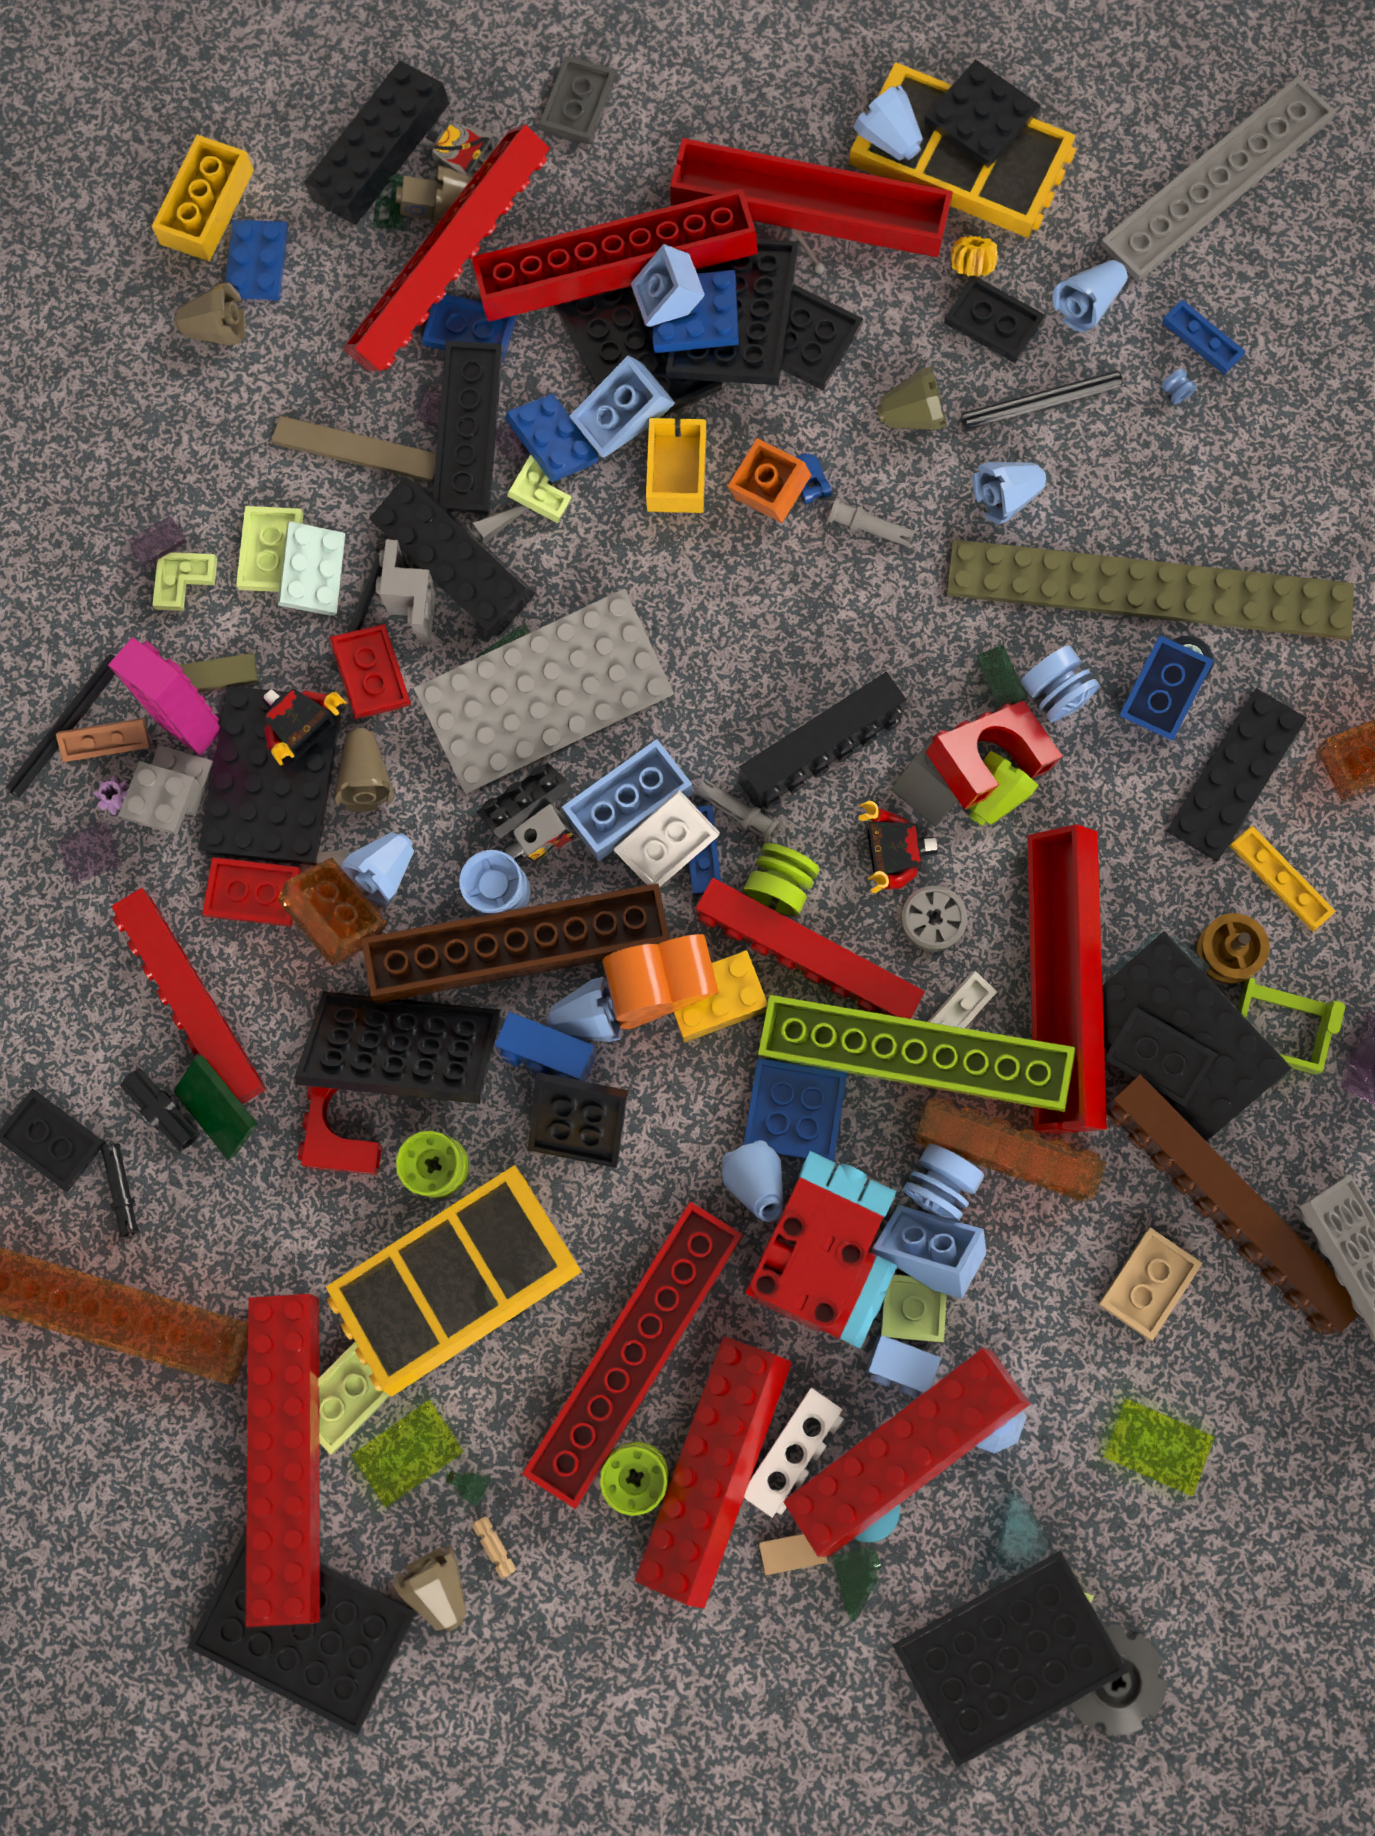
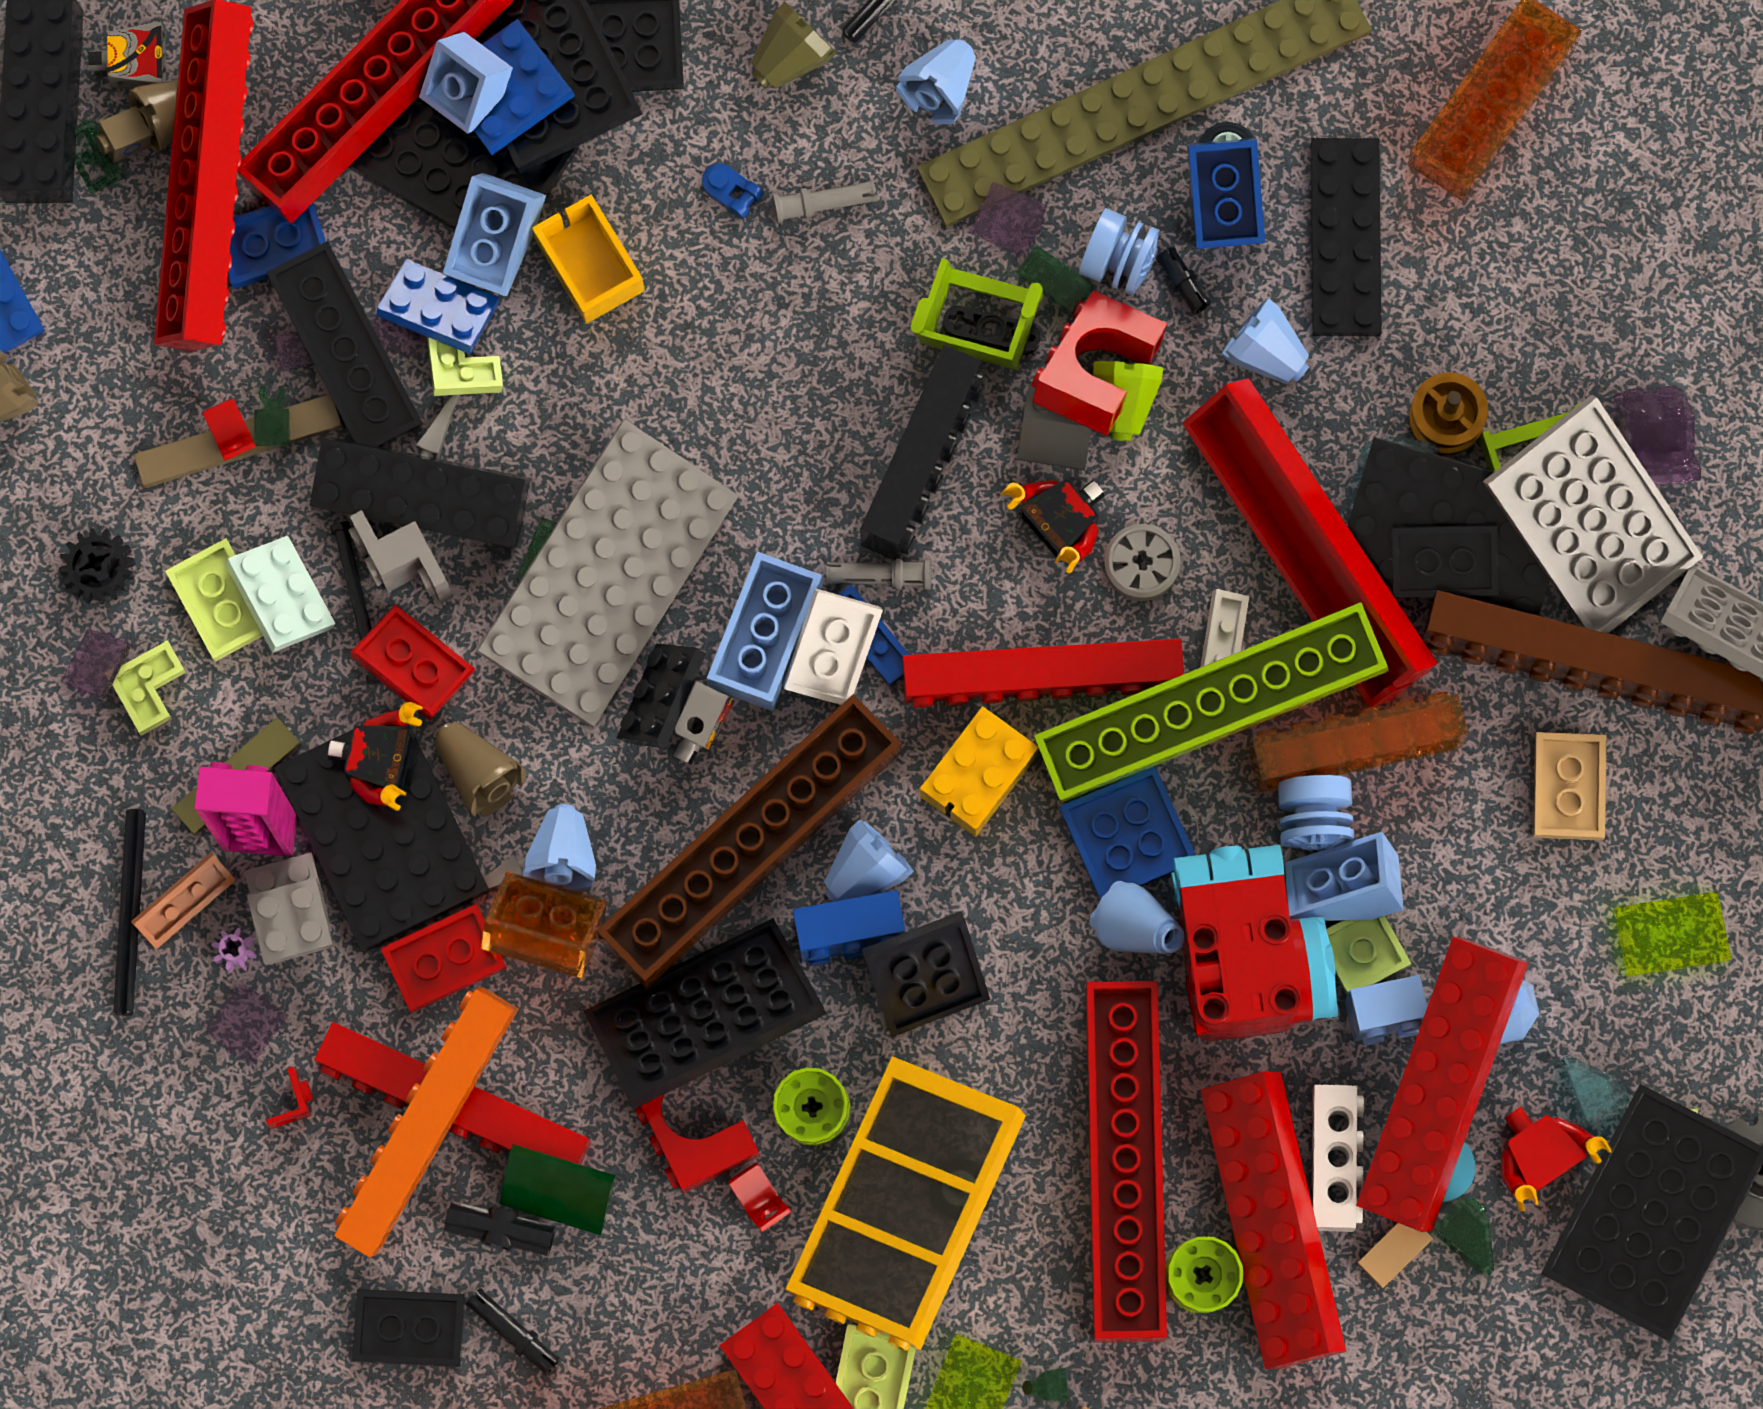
camera: 35 degrees left, 0 degrees up
(90, 925) = (303, 1095): none -> red bracket
(153, 999) = (425, 1122): none -> orange brick
(207, 479) = (85, 572): none -> black gear
(351, 433) = (228, 429): none -> red bracket
(354, 1206) = (758, 1197): none -> red bracket
(386, 449) = (272, 422): none -> clear green plate
(494, 883) = (689, 796): light blue wheel -> none
(659, 979) = (919, 786): orange brick -> none
(769, 480) = (695, 218): orange brick -> none
(781, 878) = (970, 612): lime wheel -> none
(897, 644) = (930, 309): none -> lime piece
(952, 695) = (984, 318): none -> black beam
(952, 1553) = (1543, 1153): none -> red torso
(995, 615) = (1008, 219): none -> clear purple piece
(1095, 734) = (1183, 280): none -> black pin
(1128, 818) = (1268, 345): none -> light blue cone
(1282, 878) = (1453, 314): yellow tile -> none
(1295, 1093) = (1593, 518): none -> plate

